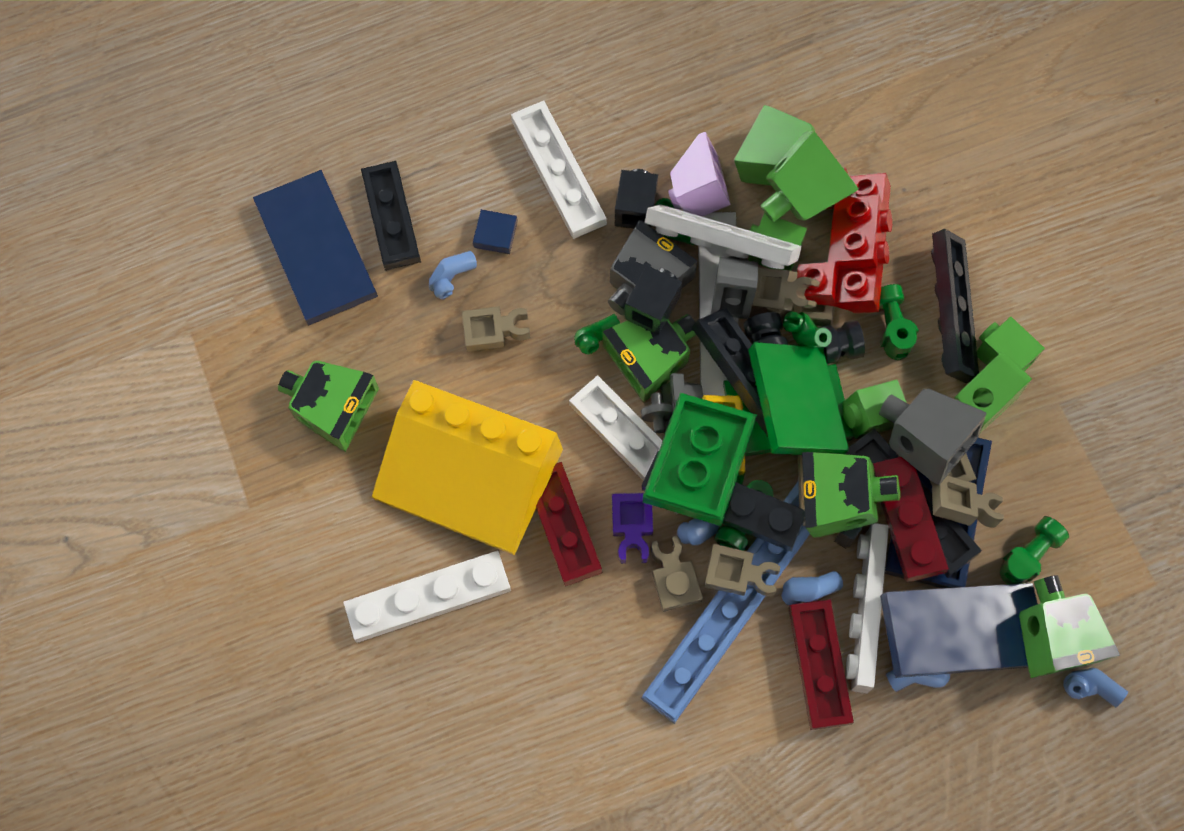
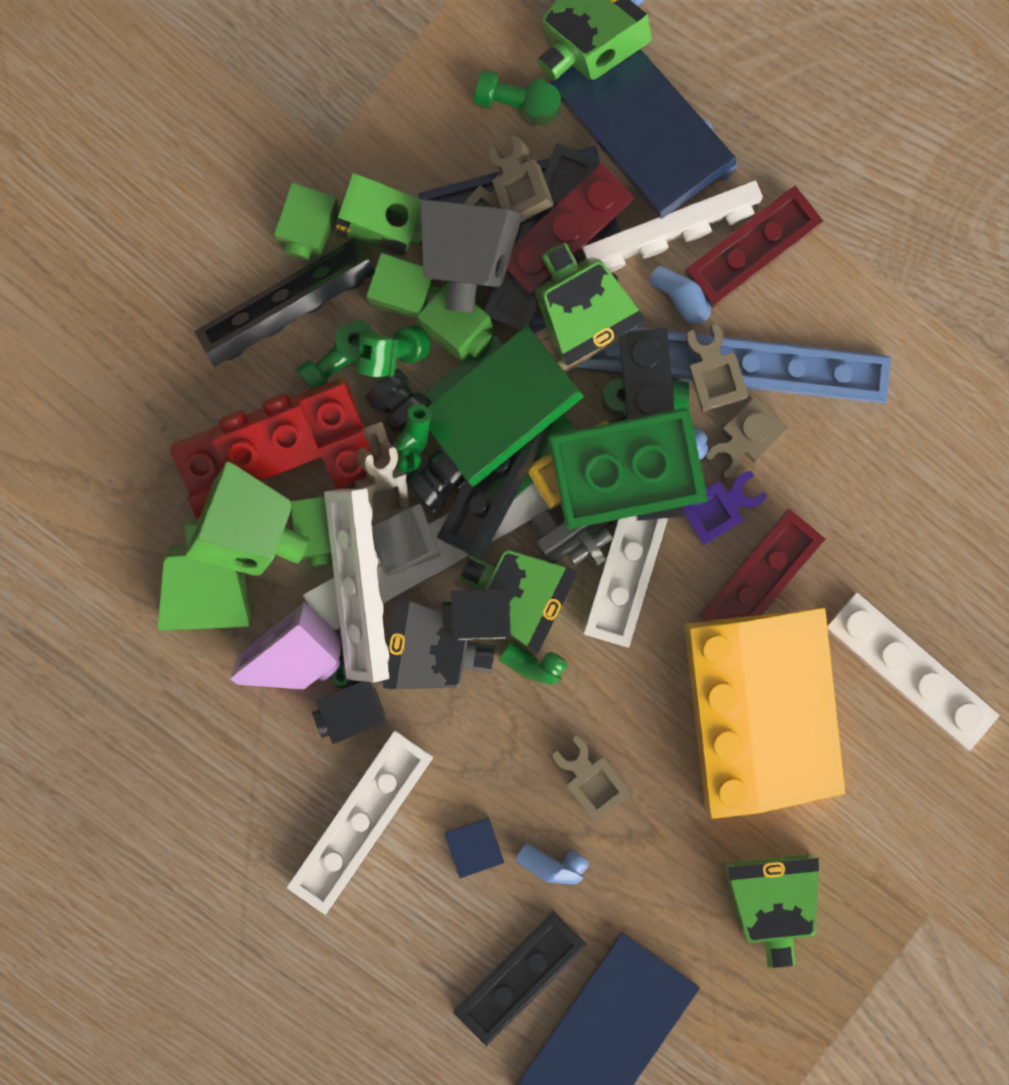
camera: 125 degrees left, 15 degrees up
(881, 334) = (379, 353): none -> green leg
(928, 375) = (400, 287): none -> bright green brick

